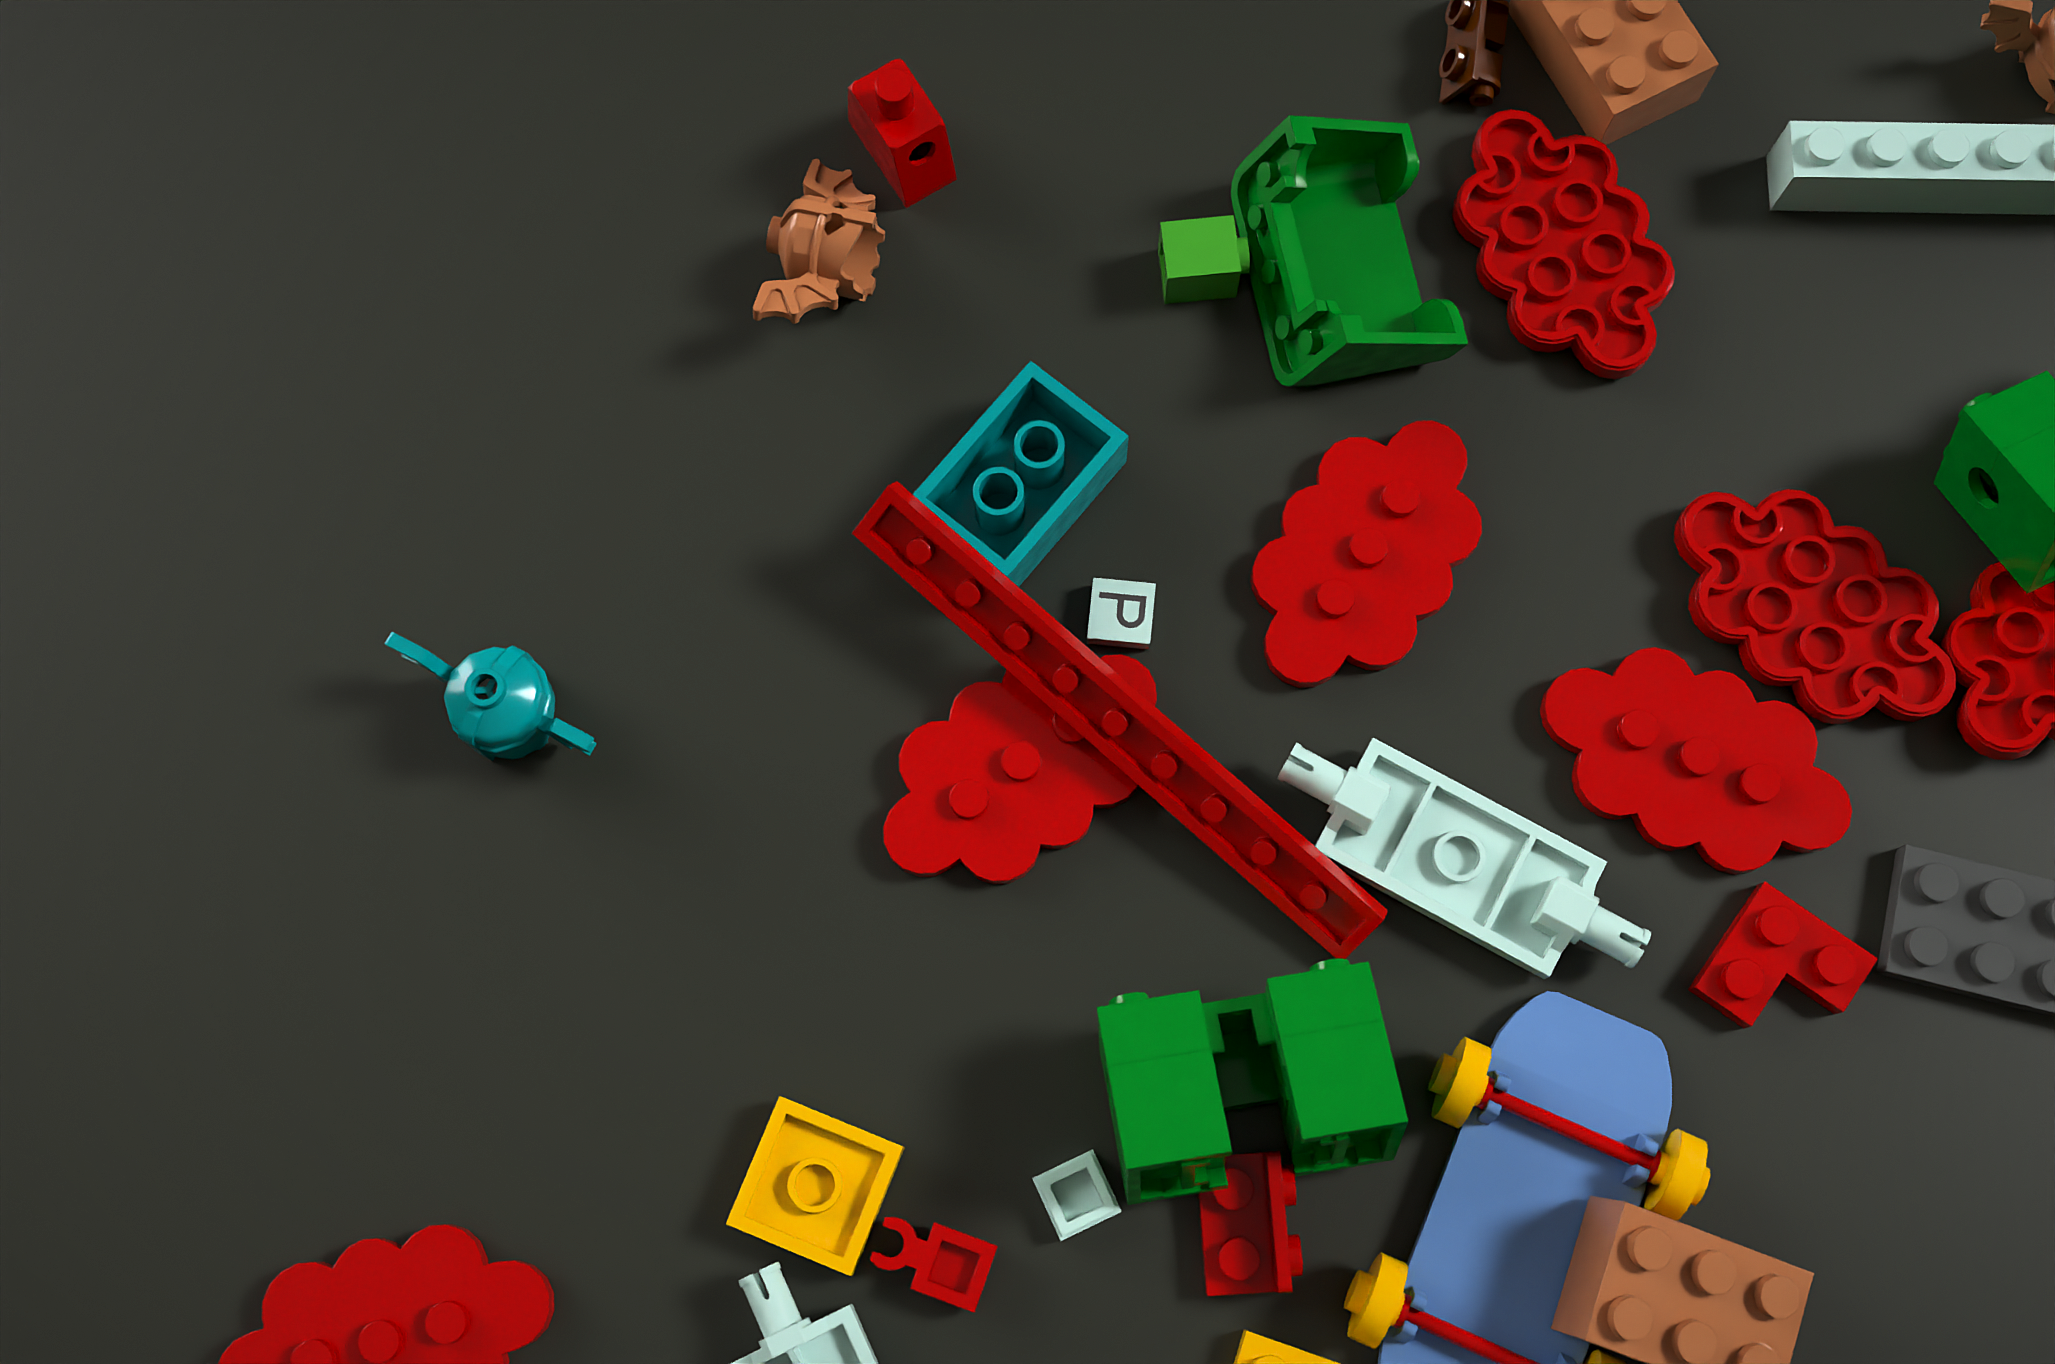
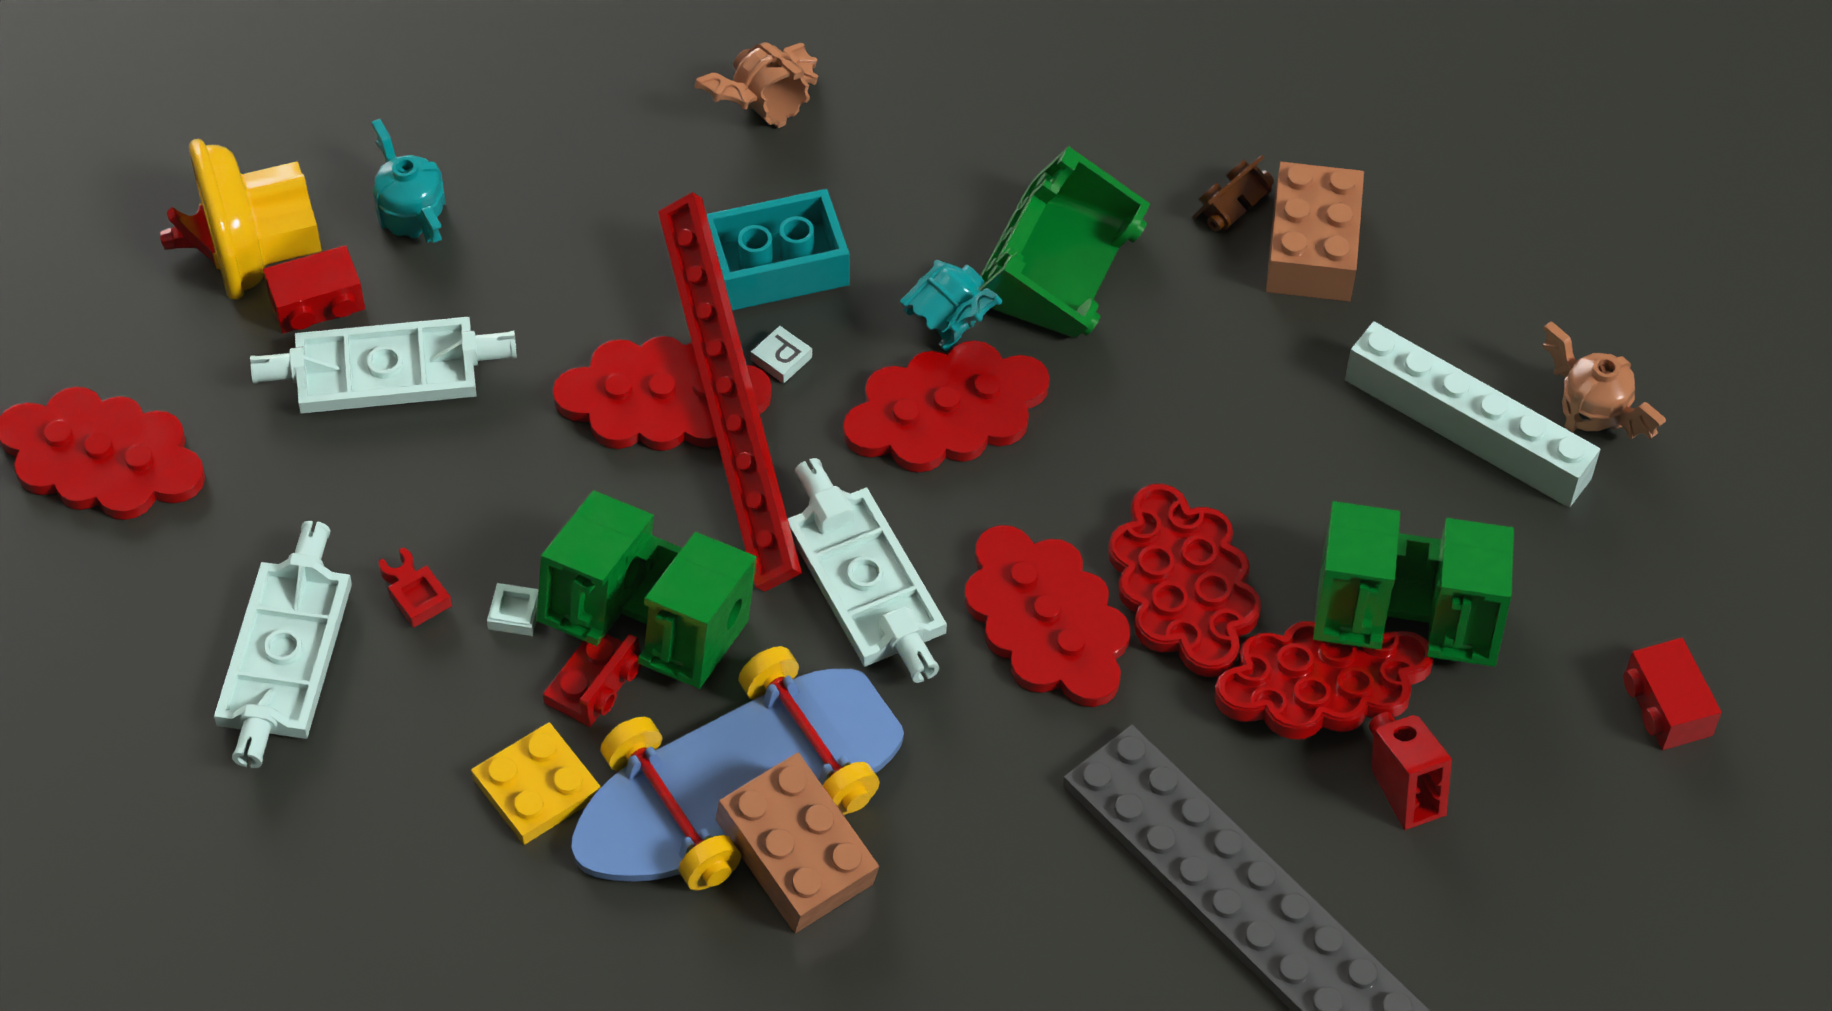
camera: 30 degrees right, 20 degrees down
(311, 878) = (244, 217): none -> yellow piece
(483, 920) = (314, 289): none -> red brick
(652, 965) = (384, 363): none -> light aqua plate
(815, 1186) = (380, 515): yellow plate -> none
(892, 120) = (858, 35): red torso -> none
(1201, 259) = (975, 208): bright green brick -> none
(1285, 414) = (949, 300): none -> teal helmet
(1563, 244) = (1196, 320): red plate -> none
(1776, 942) = (1011, 728): red plate -> none

